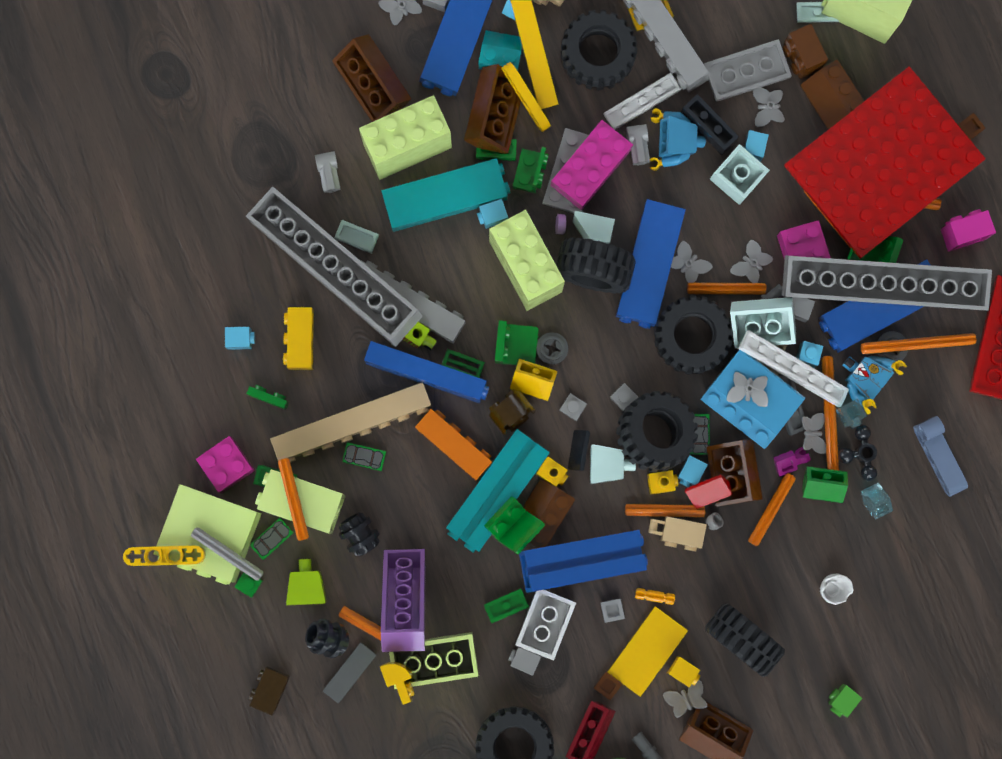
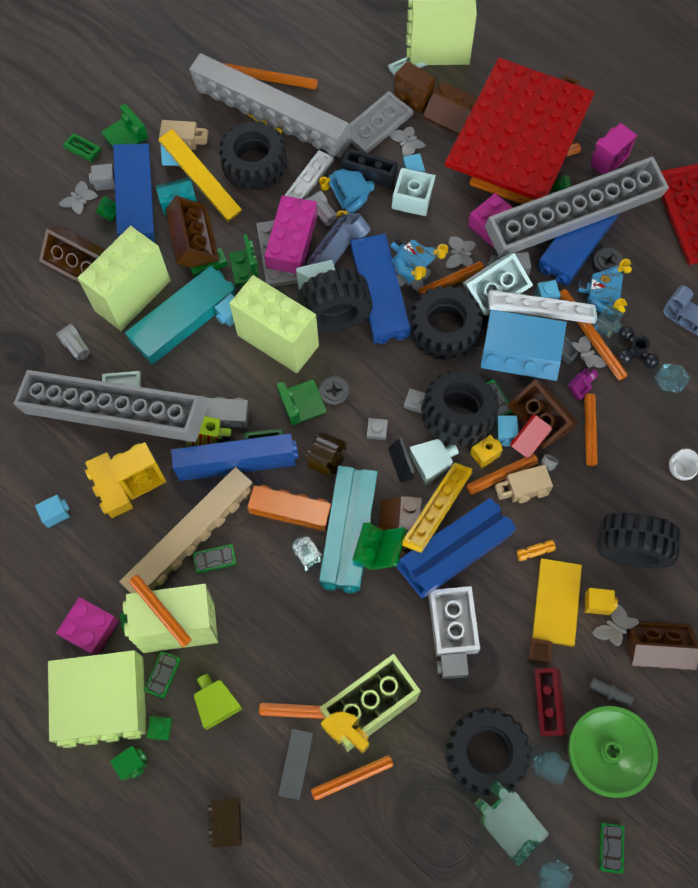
camera: 20 degrees left, 15 degrees down
(164, 555) = (59, 734): yellow beam -> none
(211, 601) = (130, 763): none -> green brick
(227, 553) = (122, 703): light grey axle -> none
(260, 393) = (96, 549): green plate -> none
(327, 638) = (258, 739): black piece -> none
(331, 343) = (137, 470): none -> yellow brick
(359, 534) = (242, 627): black piece -> none
(391, 707) = (352, 777): none -> orange axle
(403, 601) = (314, 661): medium lavender brick -> none
(424, 36) = (106, 208): none -> green plate
(448, 493) = (306, 552): none -> clear light blue brick
(506, 605) = (409, 625): green plate -> none
(526, 96) = (212, 211): yellow beam -> none
(533, 379) = (332, 419): yellow brick -> none
(552, 472) = (388, 488): yellow brick -> none
(560, 226) = (290, 292): lavender tile -> none
(585, 515) = (437, 507): none -> yellow tile
(612, 610) = (506, 581): light grey plate -> none
(633, 192) = (339, 237): none -> sand blue beam
(699, 252) = (414, 258): none -> dark azure torso
(749, 388) = (515, 335): light grey piece -> none
(825, 484) = (622, 385): green brick -> none
(918, 343) = (626, 247): orange axle -> none

